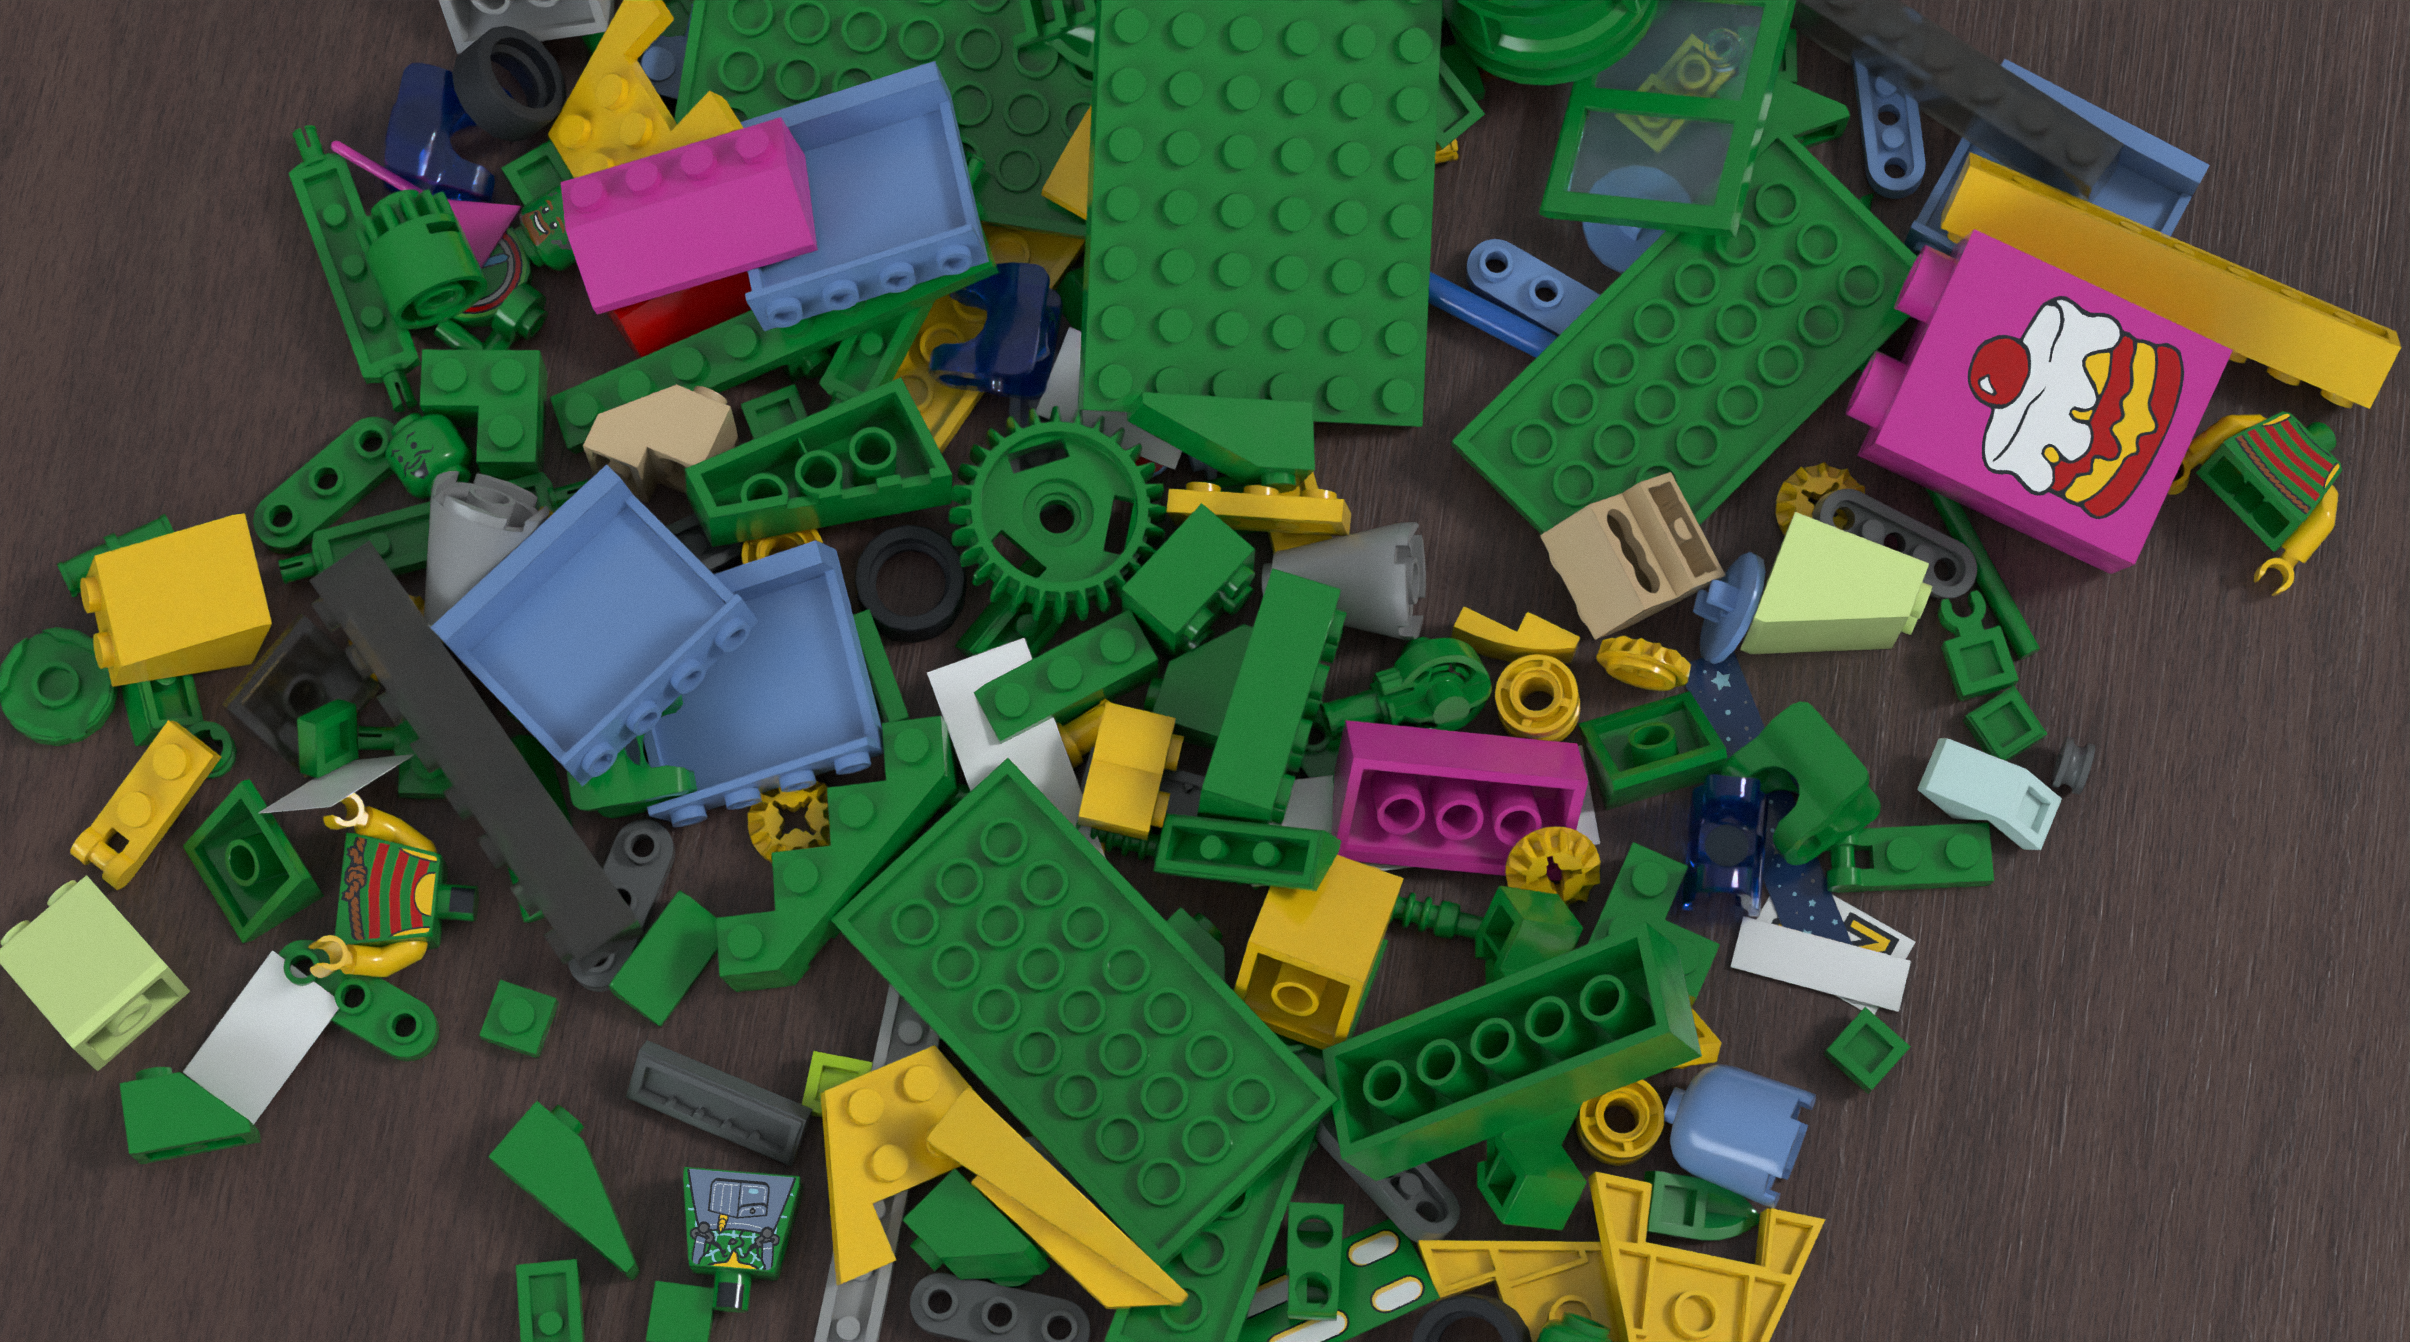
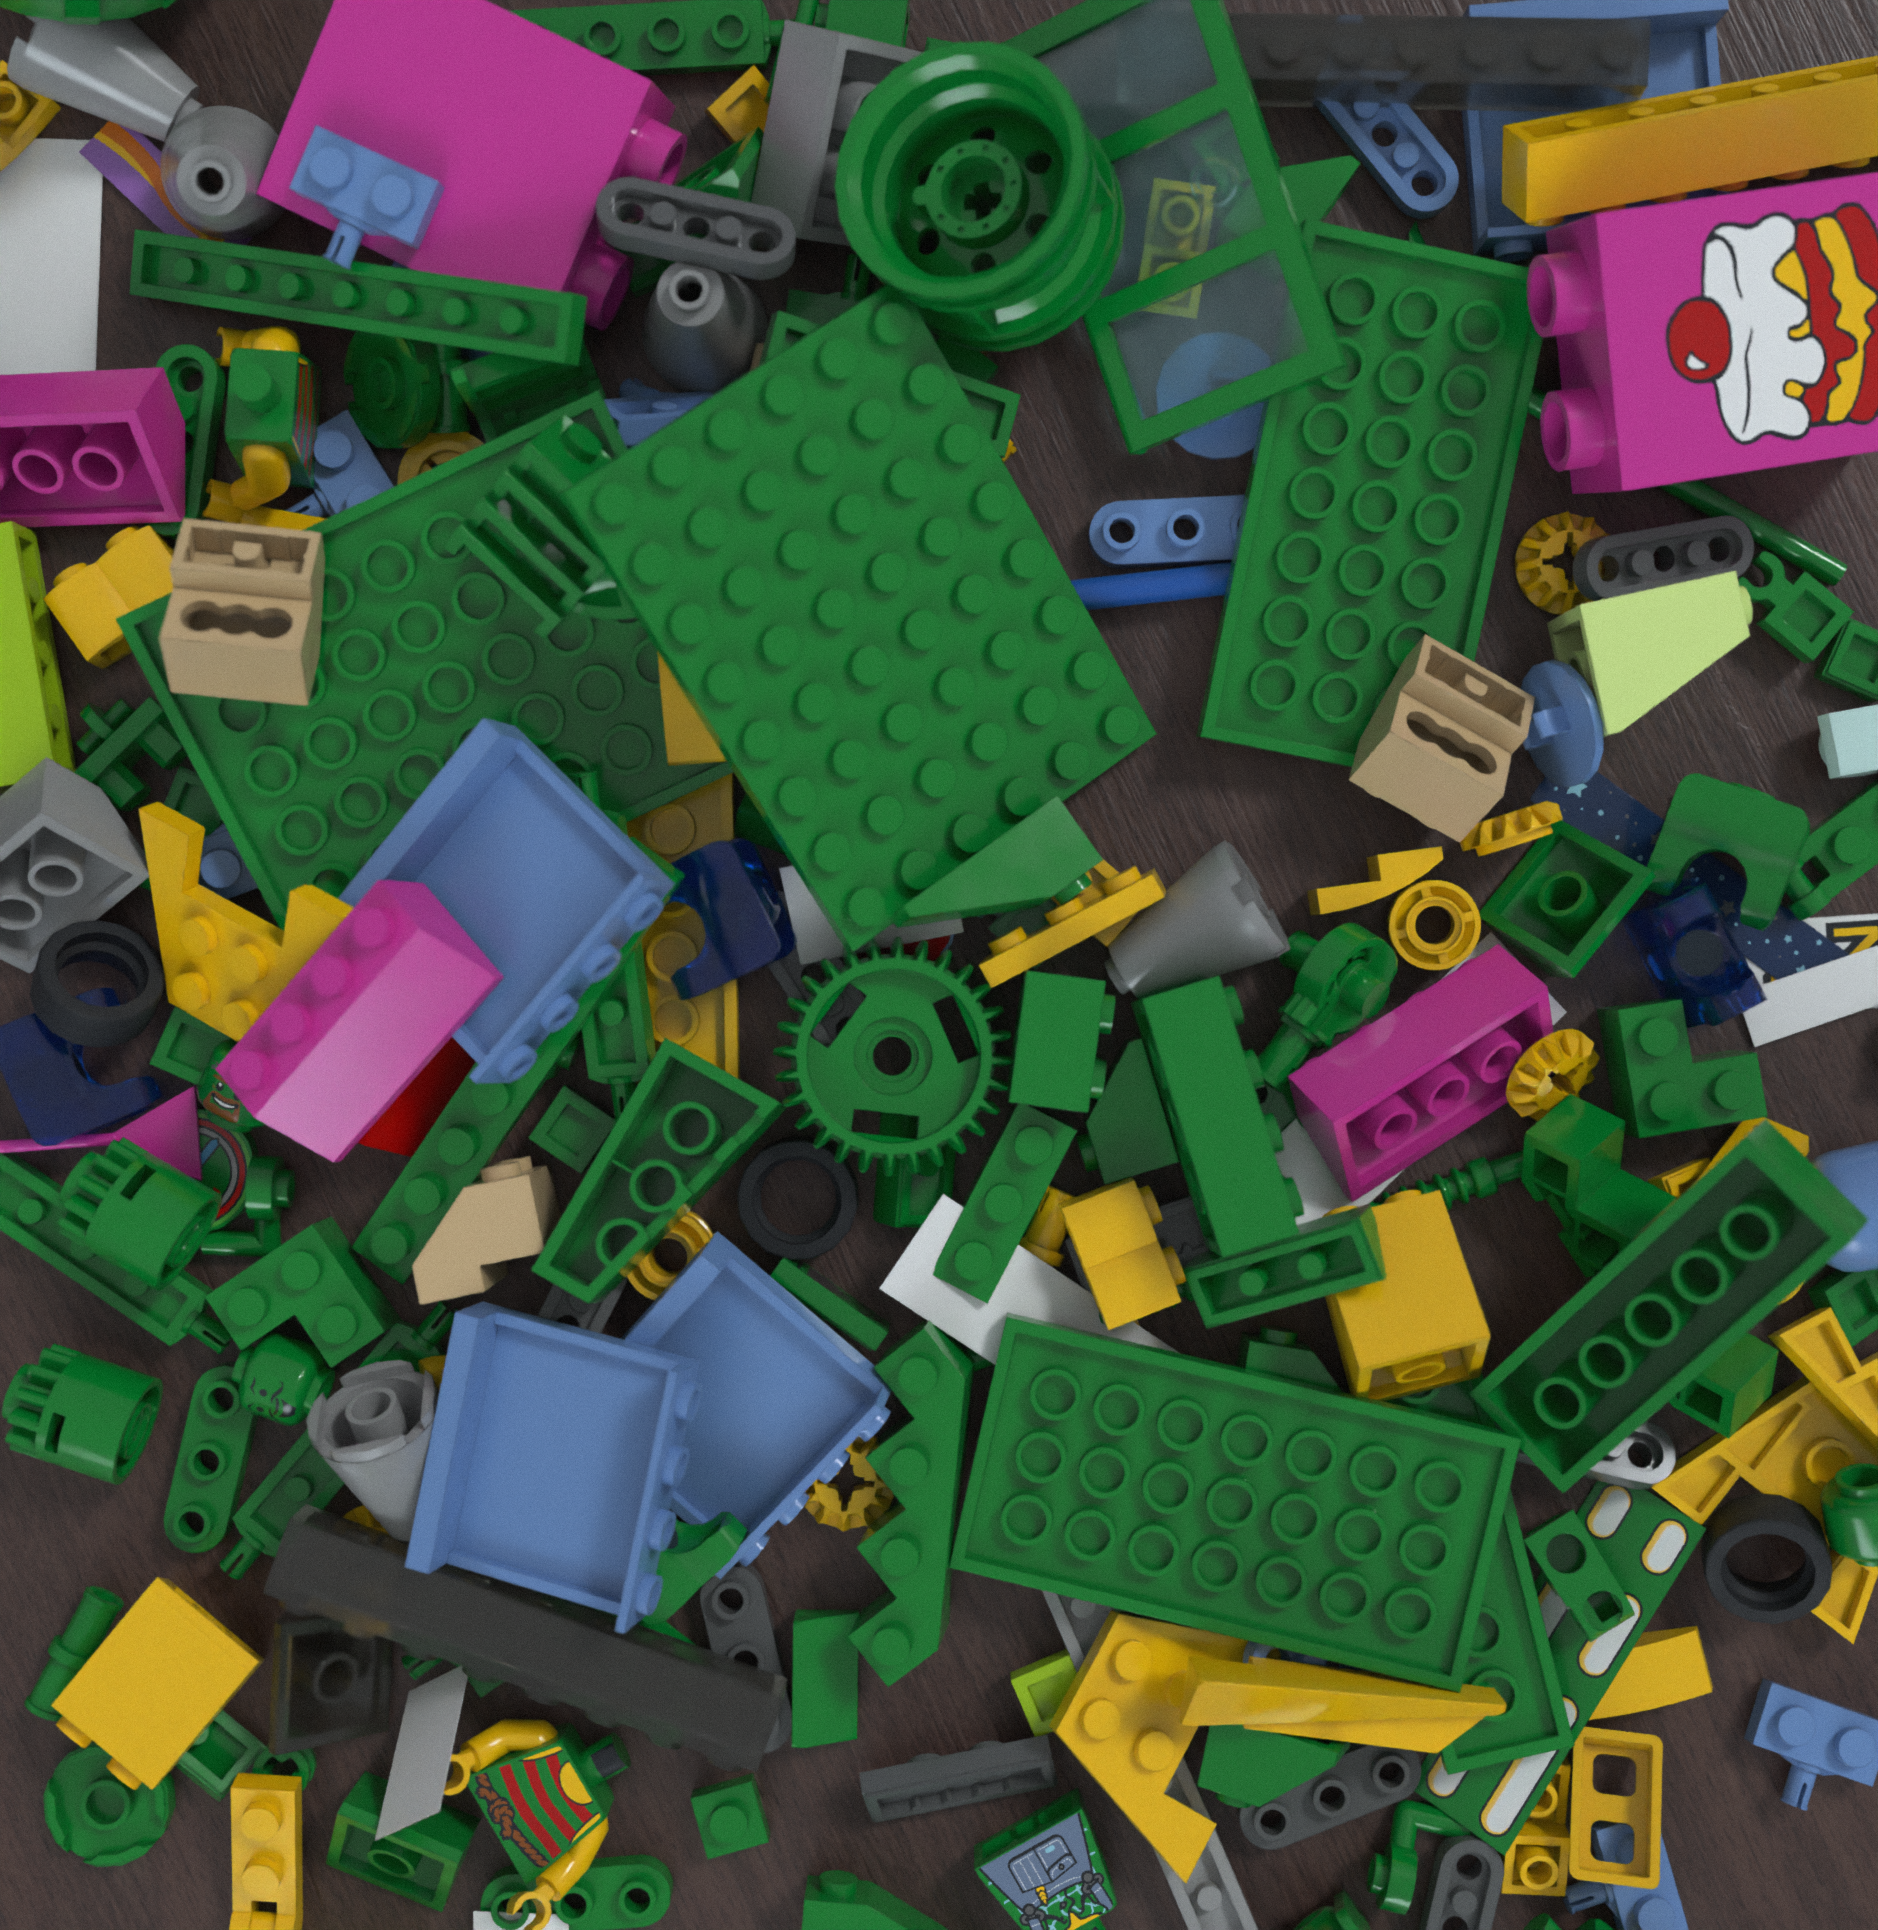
camera: 30 degrees left, 15 degrees up
(266, 379) = (82, 1413): none -> green gear
(327, 738) = (383, 1700): green plate -> none

